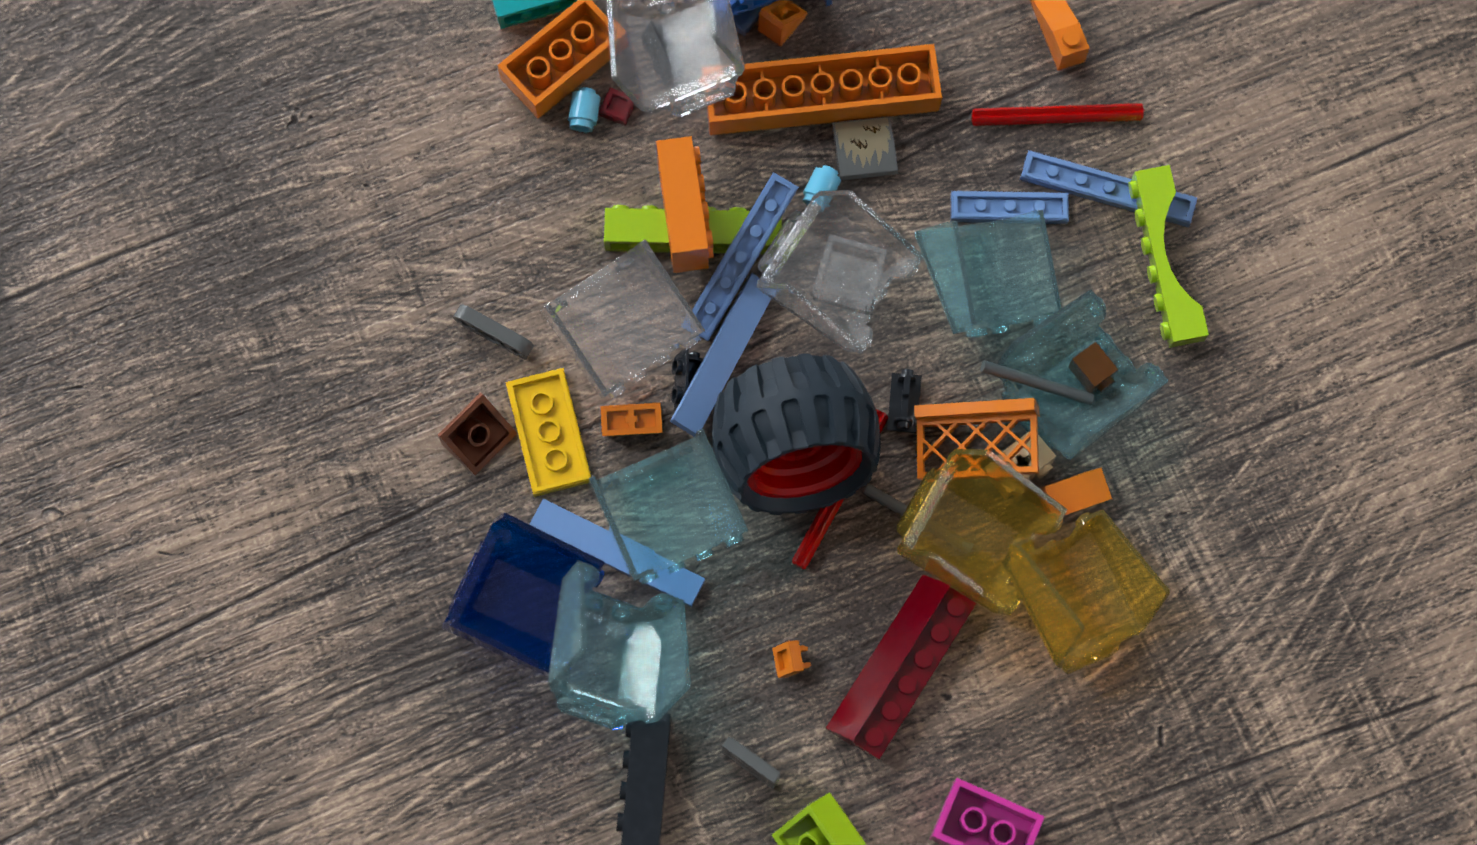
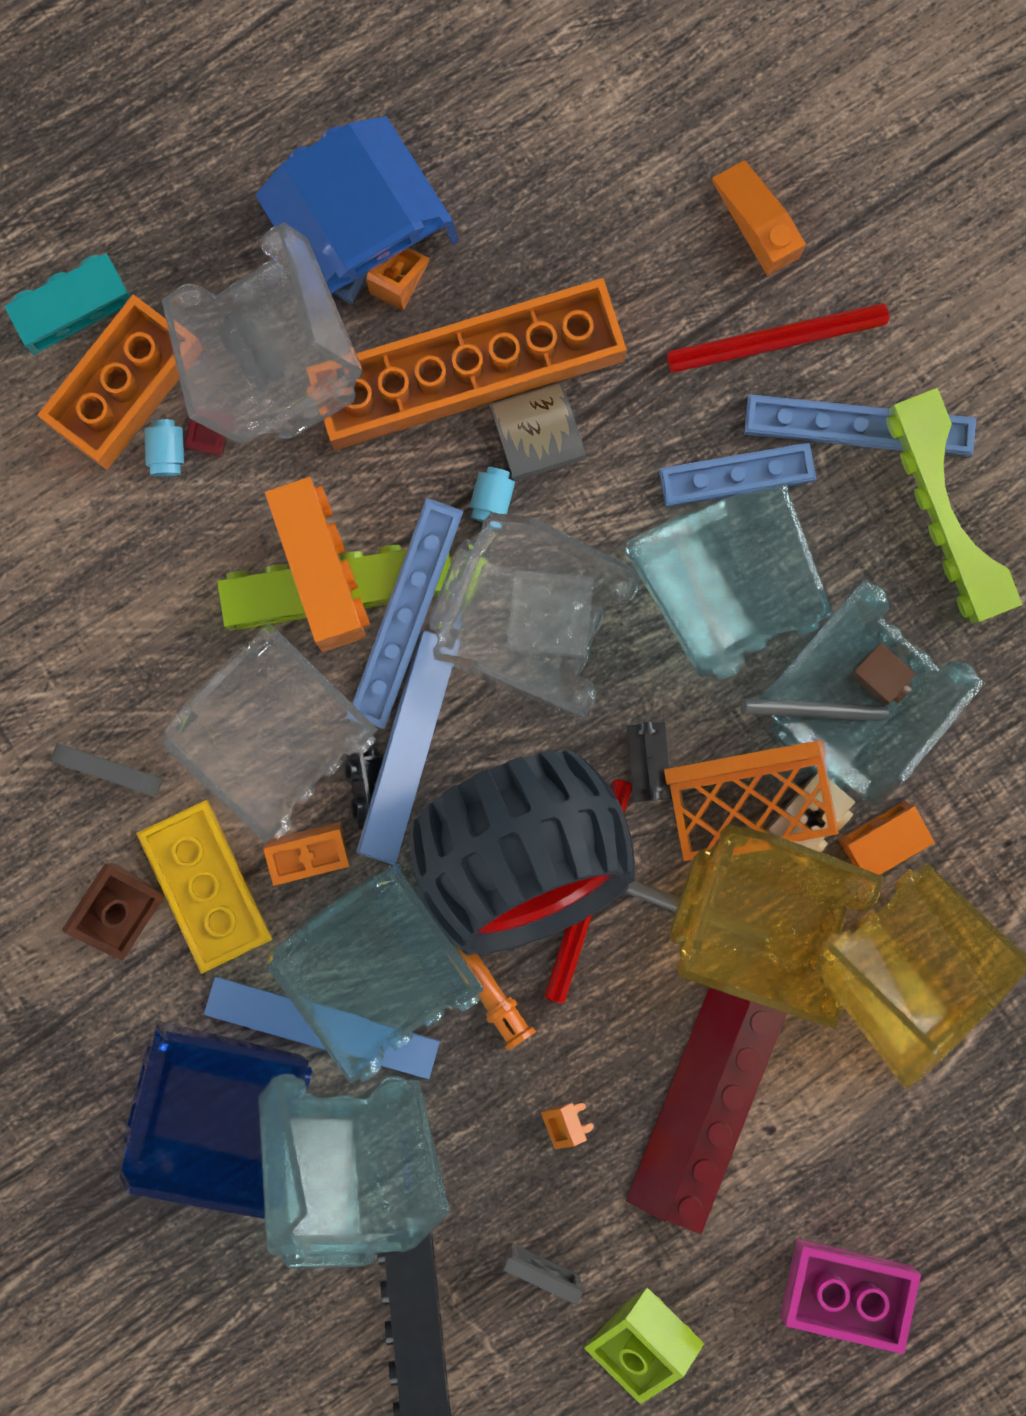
camera: 10 degrees left, 10 degrees up
(756, 562) = (500, 1009): none -> orange pin

